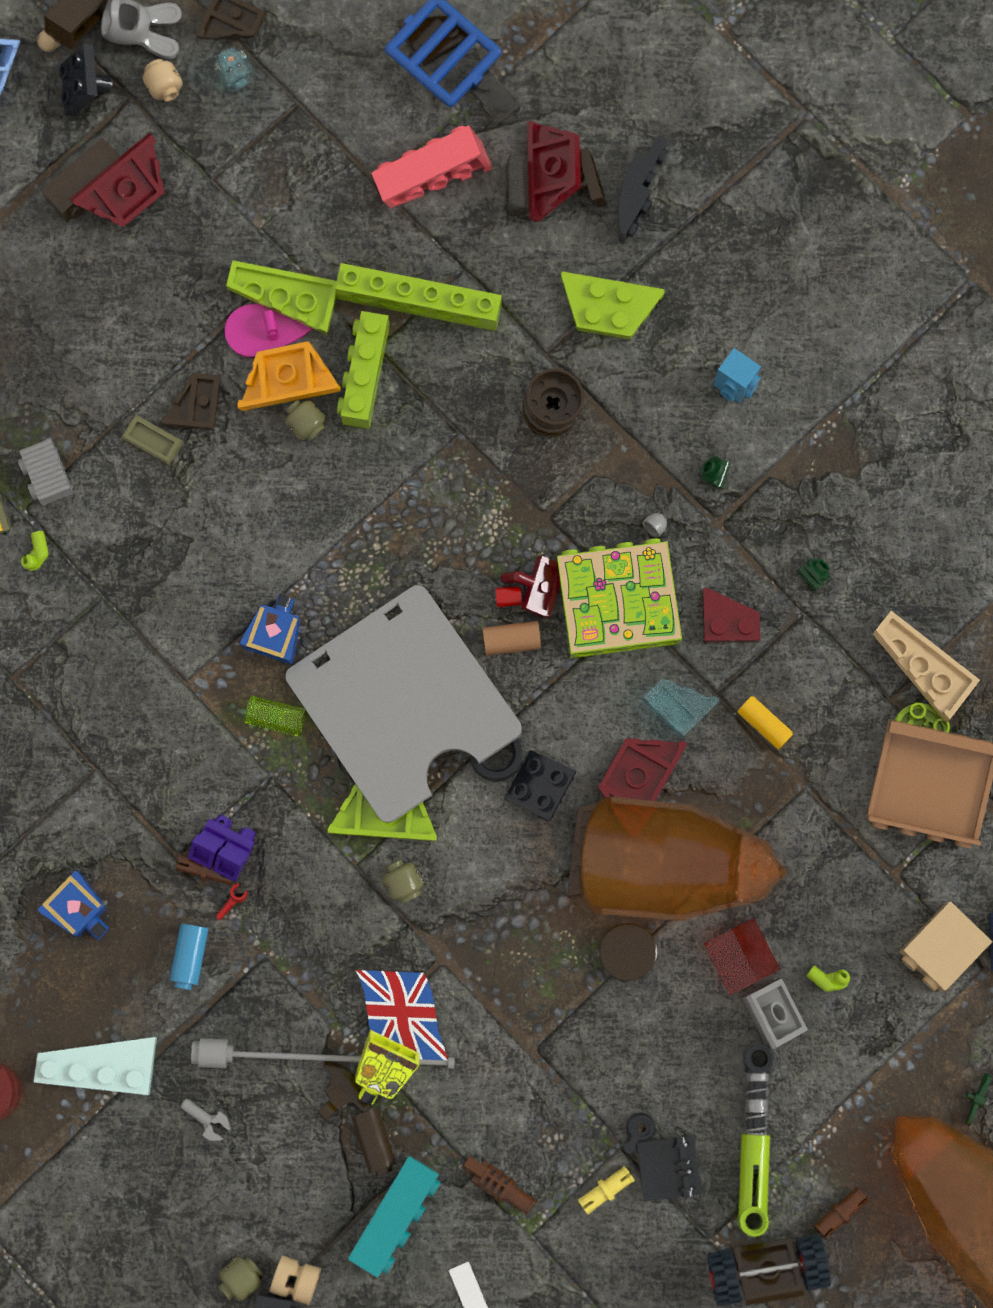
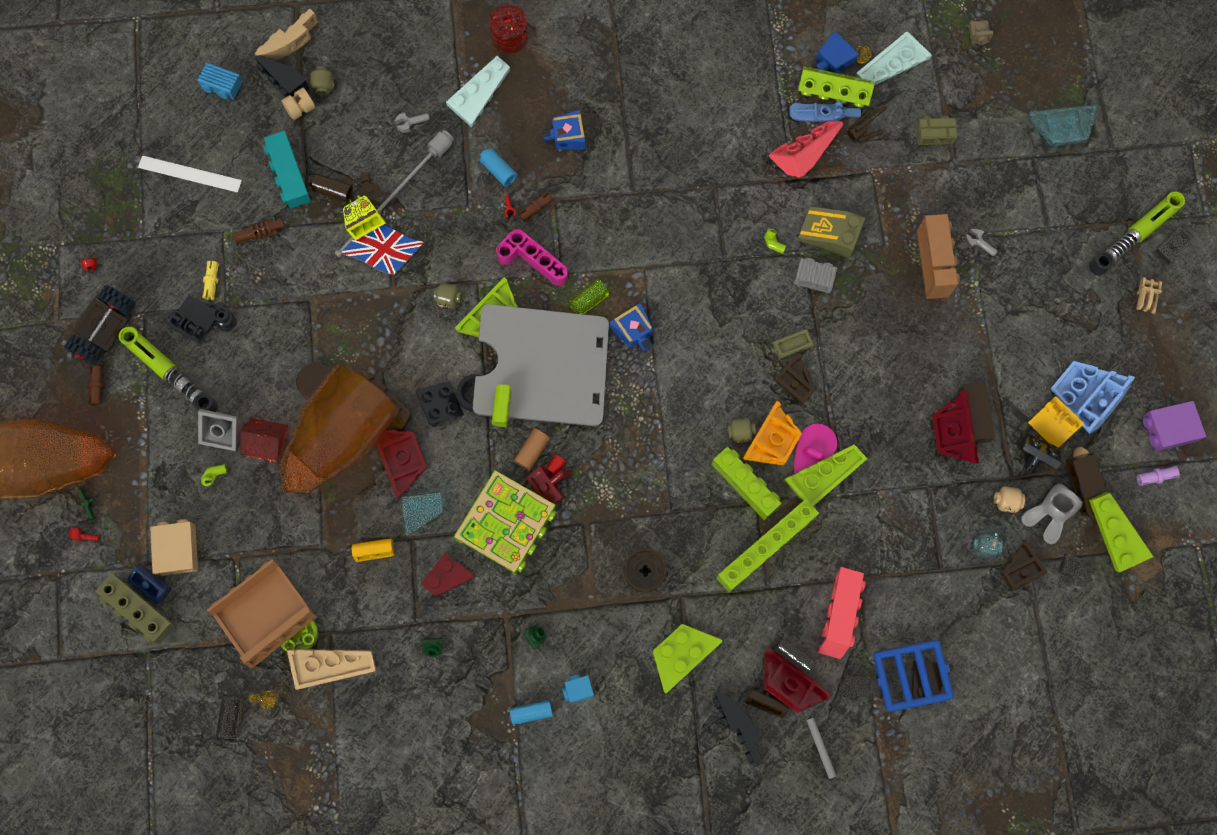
camera: 125 degrees right, 5 degrees down
(31, 87) = (1056, 422): none -> yellow hinge
(223, 847) = (537, 218): dark purple hips -> none
(277, 813) = (533, 259): none -> dark pink beam
(492, 700) = (501, 405): none -> lime brick
(592, 95) = (821, 748): none -> light grey bar
(655, 524) = (532, 578): light grey hinge -> none
(797, 414) = (531, 712): none -> dark azure brick

